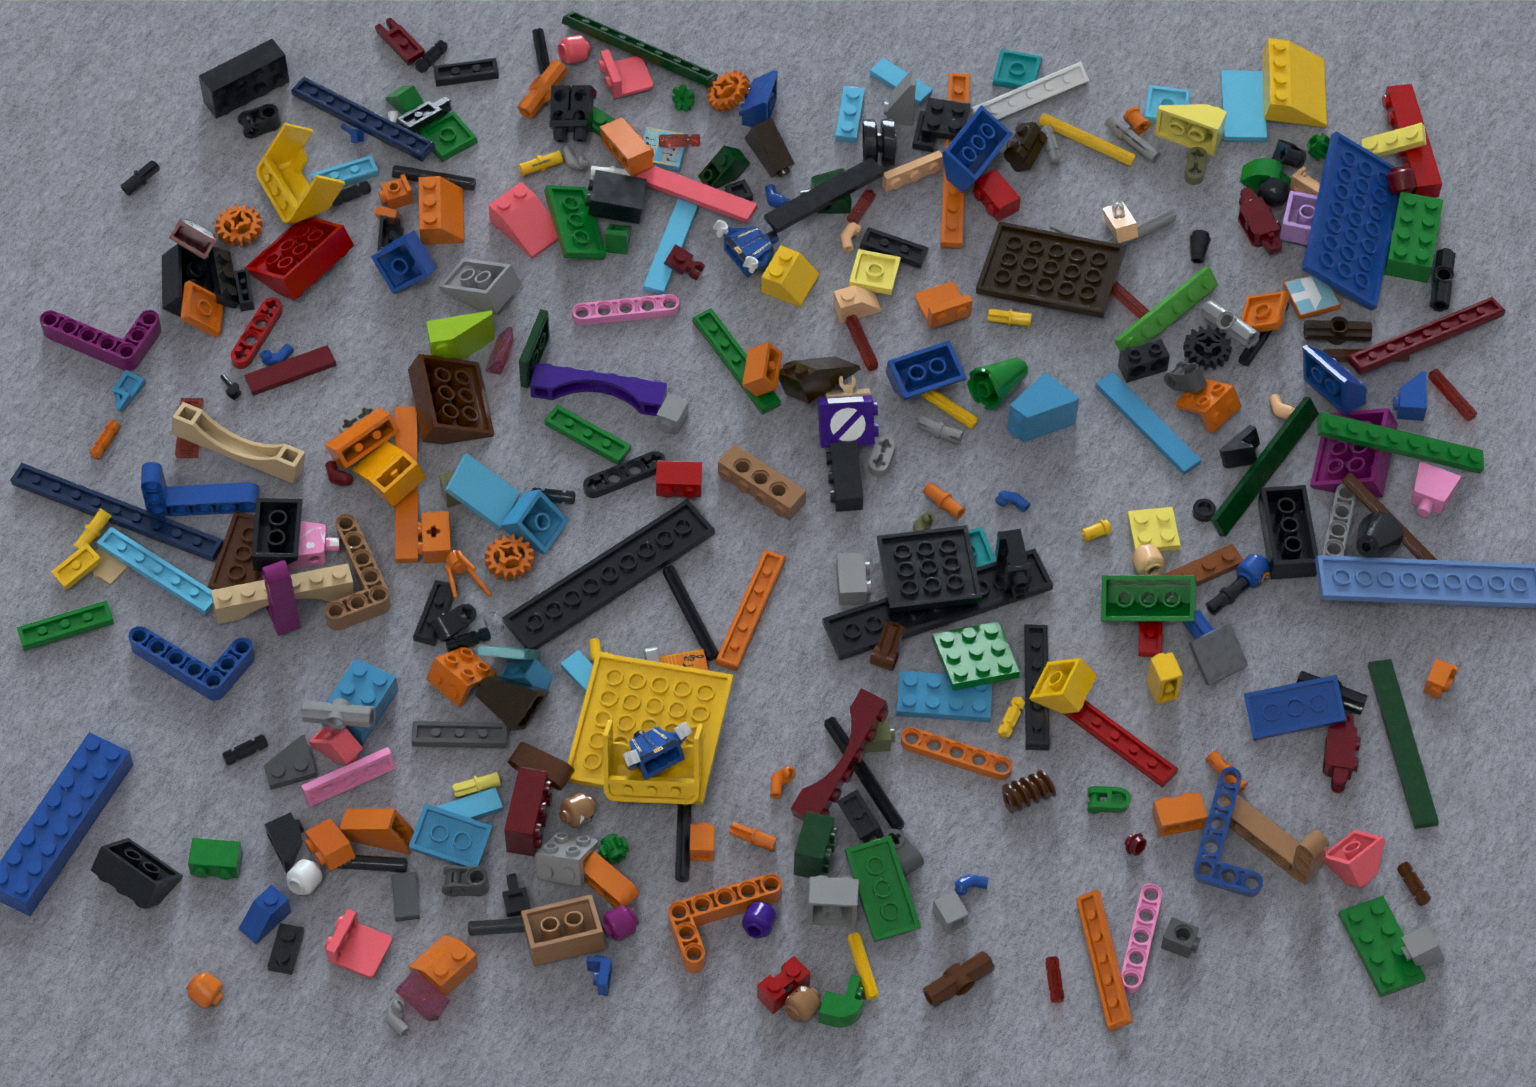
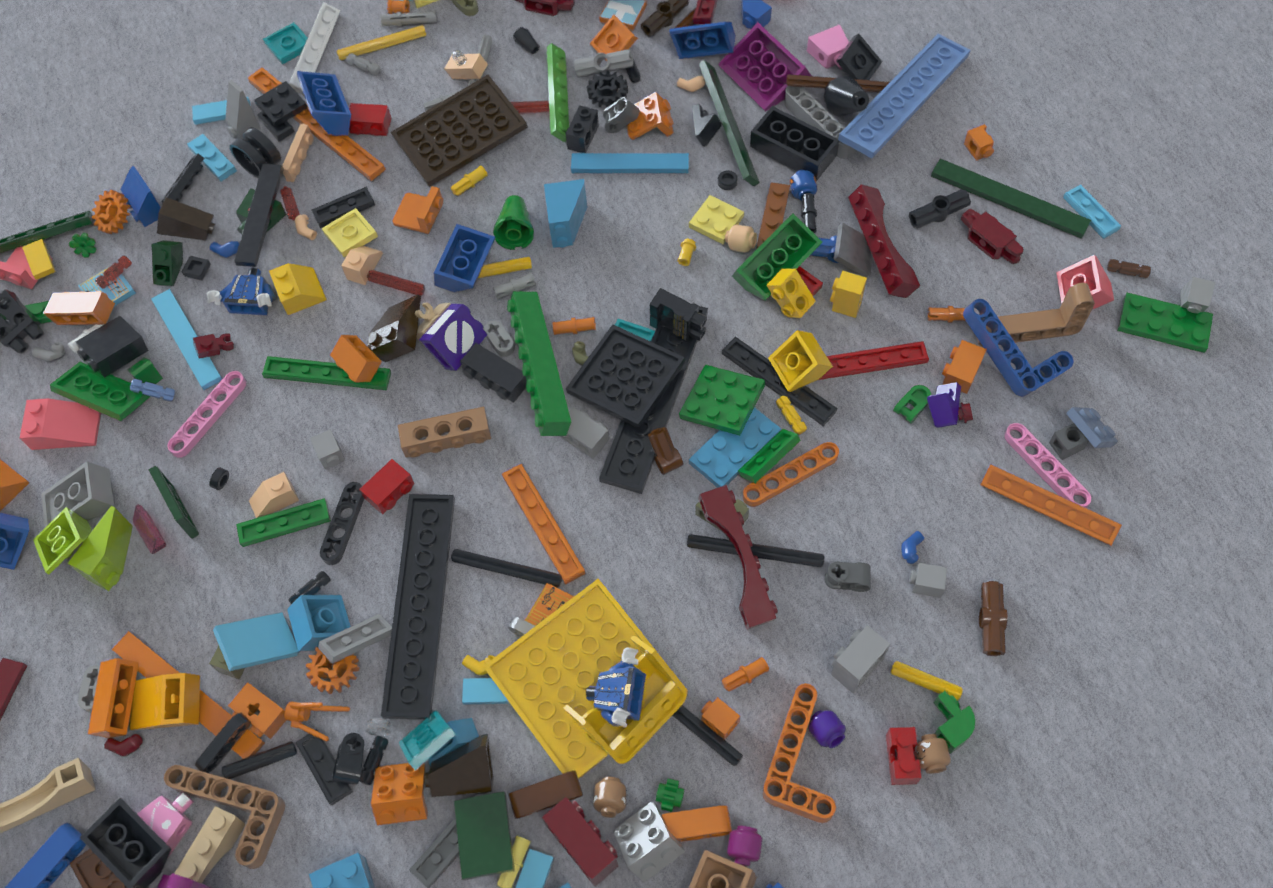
camera: 45 degrees left, 5 degrees up
(393, 532) = (222, 743): none -> black beam
(403, 567) = (259, 760): none -> black axle
(440, 301) = (61, 538): none -> lime slope
(449, 399) = (149, 601): reddish brown slope -> none
(477, 747) = (484, 836): none -> dark green tile
(527, 168) = (32, 365): yellow pin -> none
(542, 553) = (355, 638): none -> light grey plate
(555, 381) = (216, 509): dark purple arch -> none
(582, 362) = (219, 478): none -> black tile
(602, 410) = (273, 495): none -> light nougat slope
(608, 255) = (152, 390): none -> medium blue axle
(641, 80) = (39, 259): none -> yellow tile
(699, 194) = (169, 292): coral tile -> none
(780, 779) = (709, 612): orange arm -> none
(807, 114) = (184, 179): none -> black plate
(815, 845) = (798, 634): dark green brick -> none
(860, 816) = (795, 581): black hinge -> none
(879, 497) = (539, 364): none -> green brick
(882, 889) = (861, 604): green plate -> none
(956, 725) = (769, 455): none -> green plate
(1014, 498) = (616, 281): blue arm -> none
(1025, 146) = (351, 76): dark brown brick -> none
(1027, 789) = (866, 449): reddish brown piece -> none
(1054, 979) = (1041, 550): clear red axle -> none
(1126, 633) = (791, 293): none -> yellow brick
(1126, 823) = (945, 405): none -> dark purple slope
(1205, 944) = (1093, 429): none -> sand blue plate
(1224, 701) = (895, 271): none -> dark red arch
(1295, 707) = (939, 235): blue plate -> none
(1400, 442) = (787, 35): green plate -> none
(1435, 520) = (859, 59): none -> black plate
(1452, 818) = (1089, 208): none -> medium azure tile

